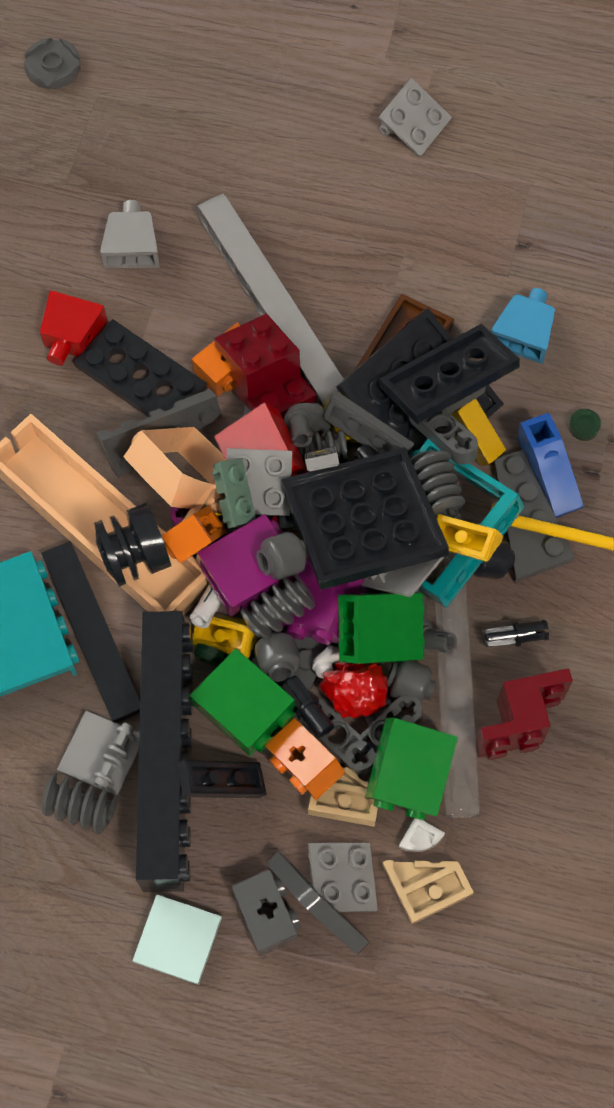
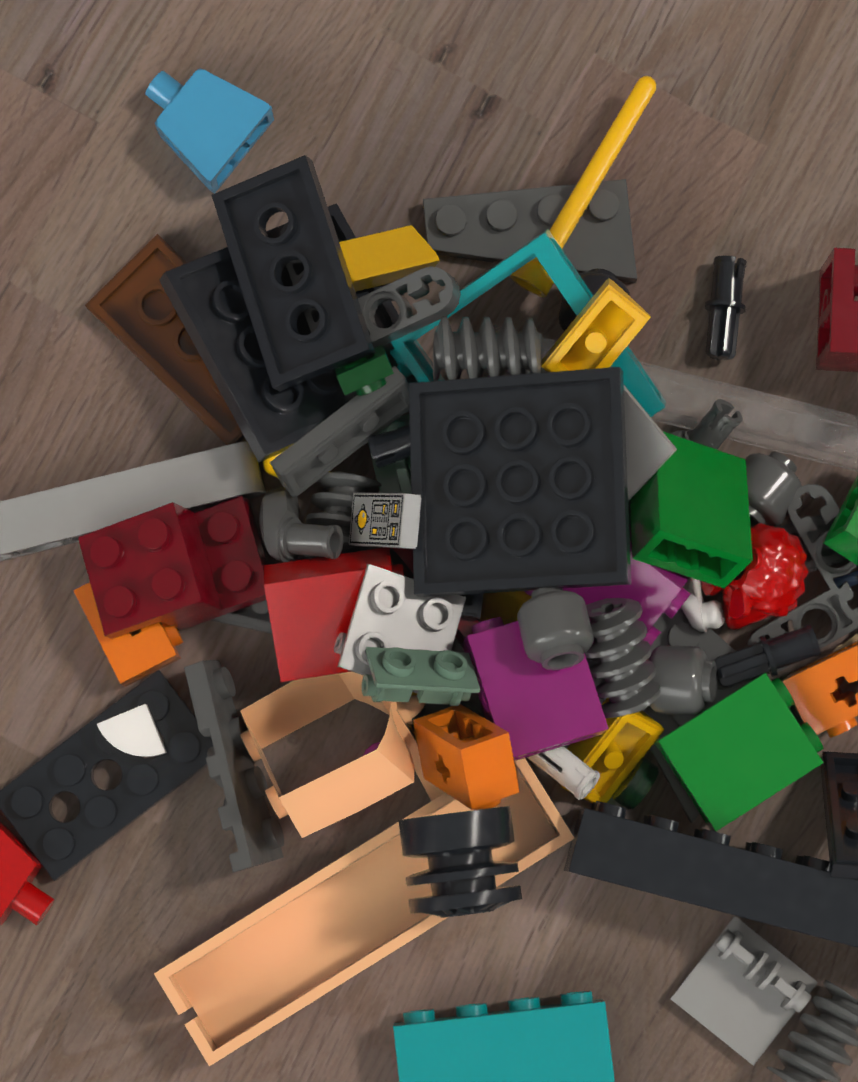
camera: 75 degrees left, 15 degrees up
(92, 632) = (539, 960): black tile -> none
(166, 374) = (134, 732): none -> white tile
(403, 423) = (365, 373): none -> dark green plate
(550, 463) = (467, 165): blue slope -> none
(584, 424) = (403, 89): clear green tile -> none

